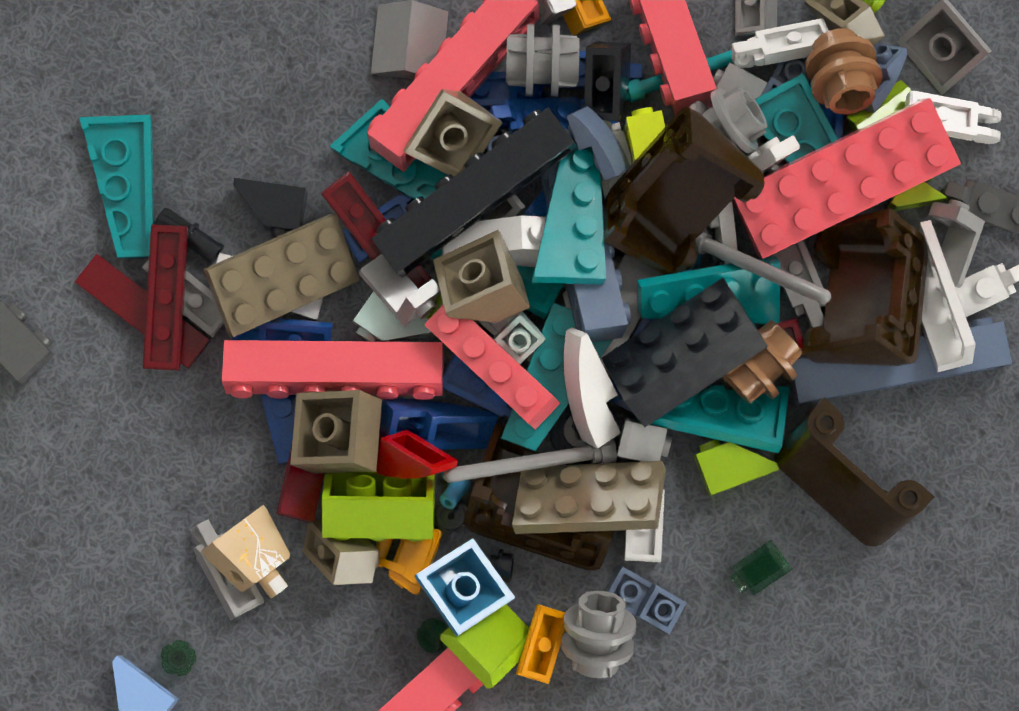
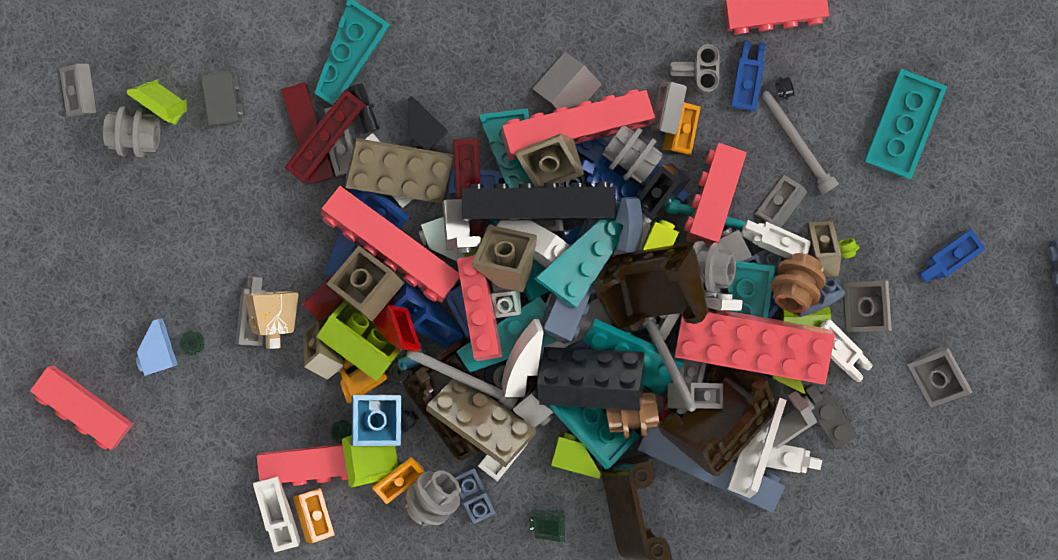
camera: 40 degrees right, 5 degrees up
(835, 276) = (704, 395): none -> light grey slope

